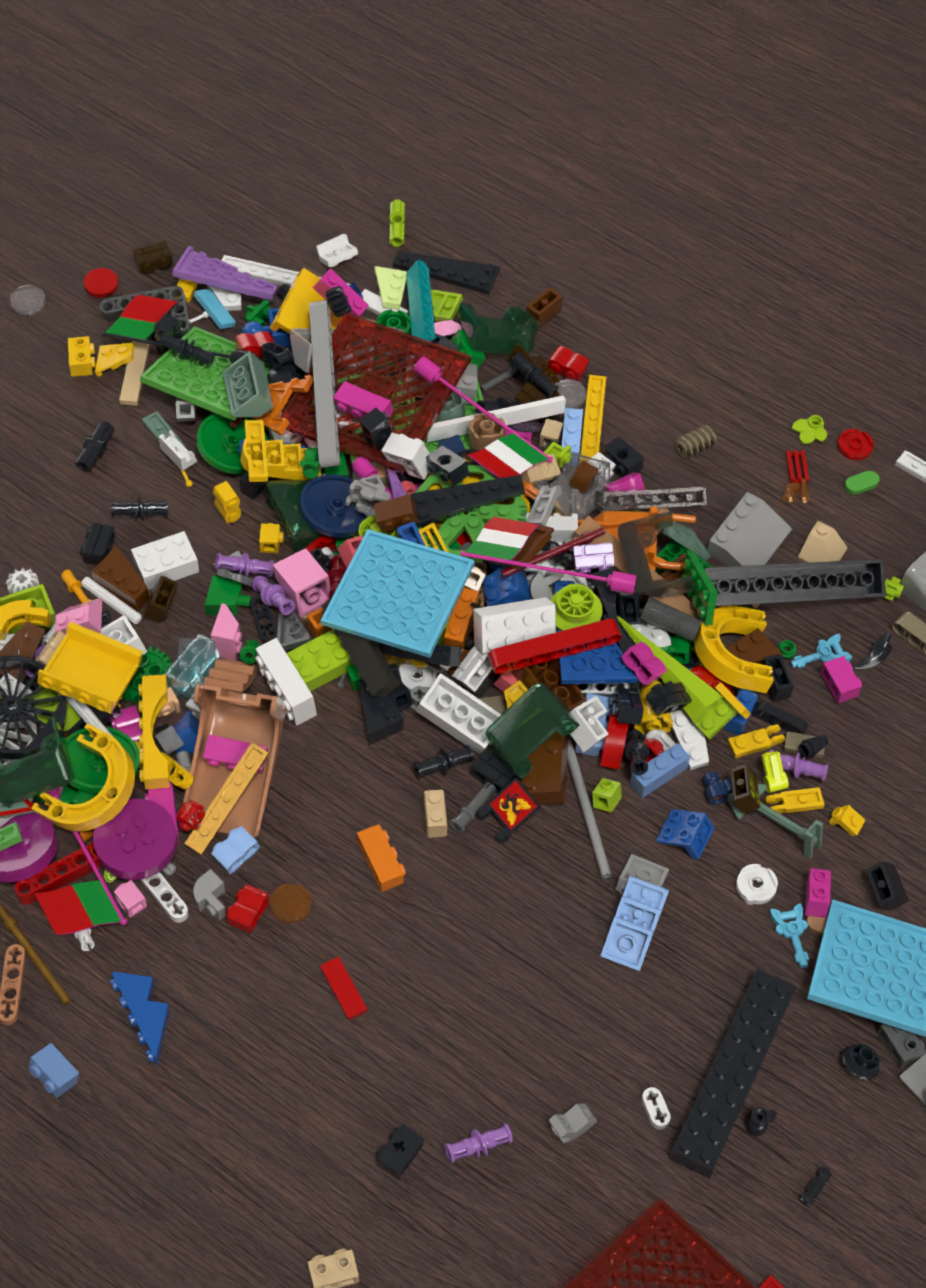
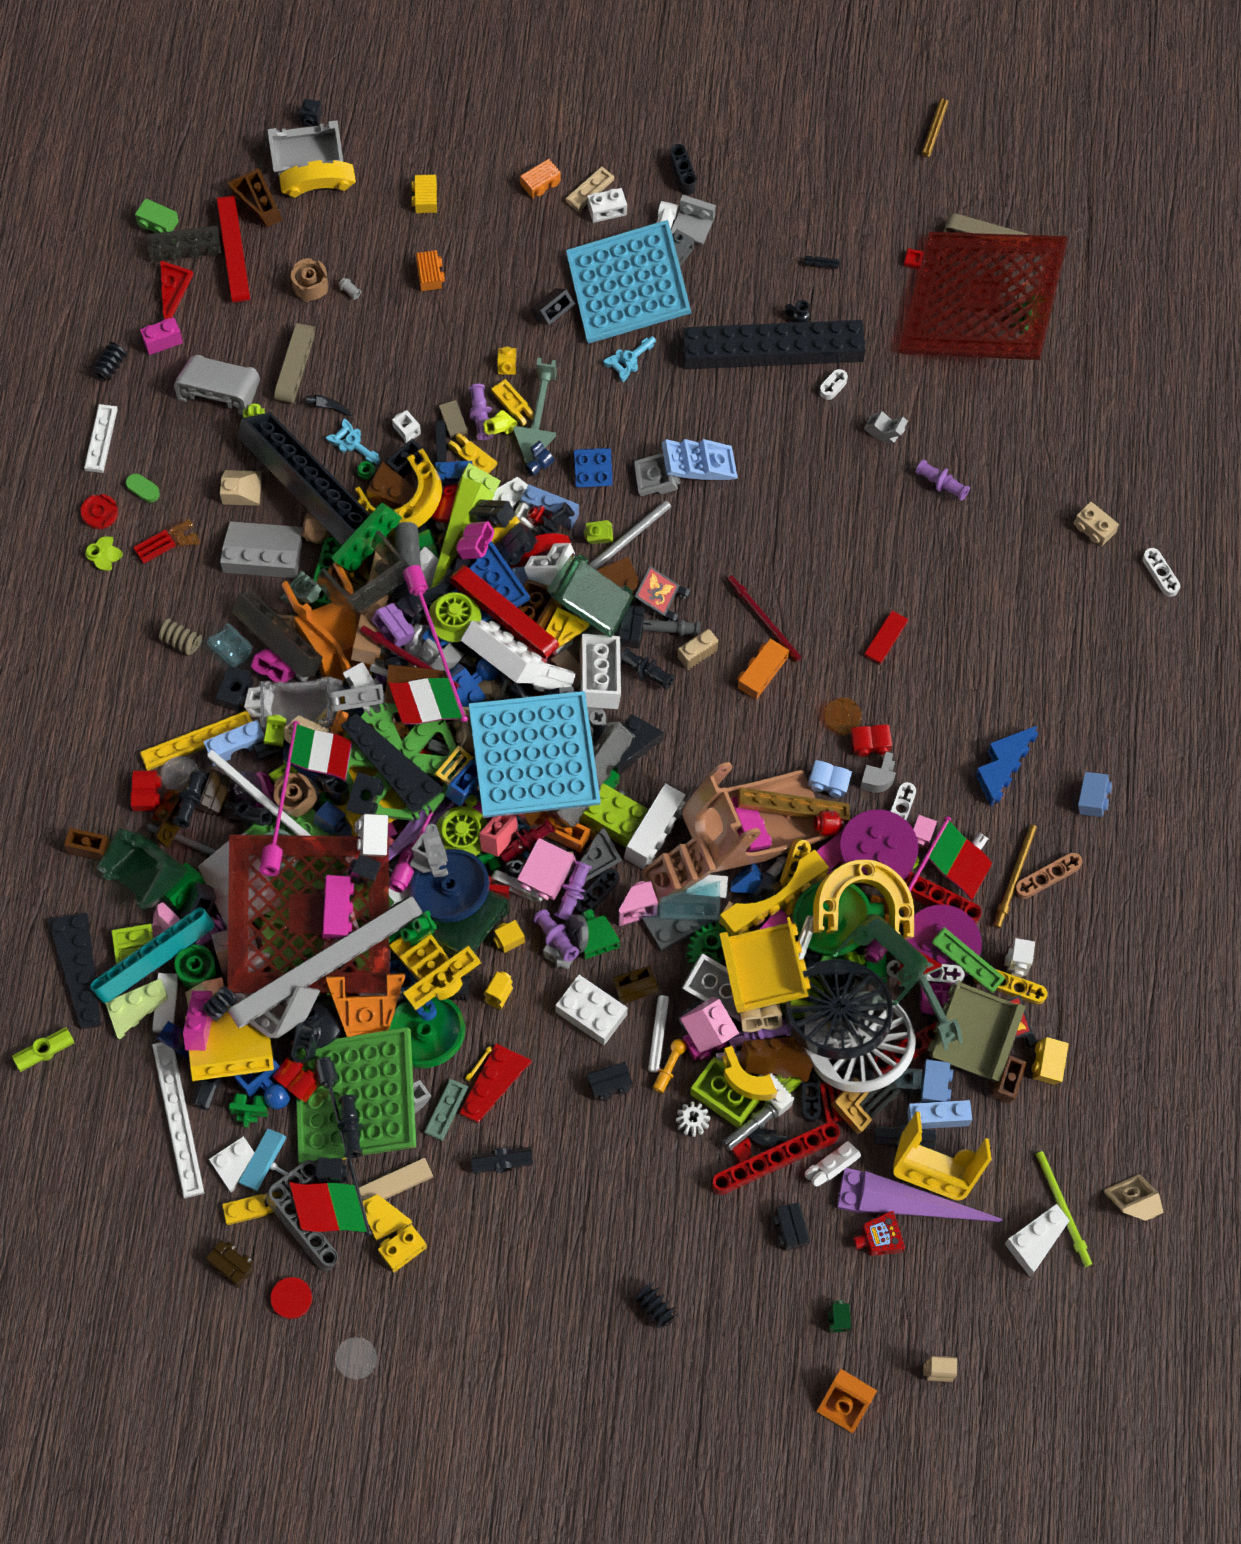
camera: 120 degrees left, 10 degrees up
(121, 580) = (635, 1034): reddish brown wedge -> none
(139, 508) = (549, 1070): black piece -> none
(161, 473) = (495, 1078): none -> red wing
(176, 451) = (465, 1075): white hinge -> none
(219, 274) = (221, 1179): medium lavender wing -> none
(247, 387) = (367, 1038): sand green slope -> none
(249, 652) = (641, 873): green brick -> none
(336, 251) = (118, 1084): white bracket -> none
(396, 513) = (446, 808): reddish brown brick -> none
(397, 1163) = (976, 522): black brick -> none
(473, 887) = (741, 591): none -> dark red bar
(551, 431) = (242, 760): tan brick -> none
(584, 477) = (284, 702): reddish brown brick -> none
(664, 471) = (231, 645): none -> clear light blue bracket
(733, 700) = (461, 469): yellow tile -> none
(745, 788) = (533, 432): dark brown brick -> none
(752, 894) = (602, 406): white plate -> none
(812, 746) = (456, 406): black cone -> none
(815, 698) = (406, 426): none -> white brick
(816, 924) = (610, 345): medium nougat tile -> none
(817, 893) = (590, 349): dark pink brick -> none
(841, 679) = (375, 414): dark pink brick -> none
(861, 1061) = (708, 269): black piece -> none

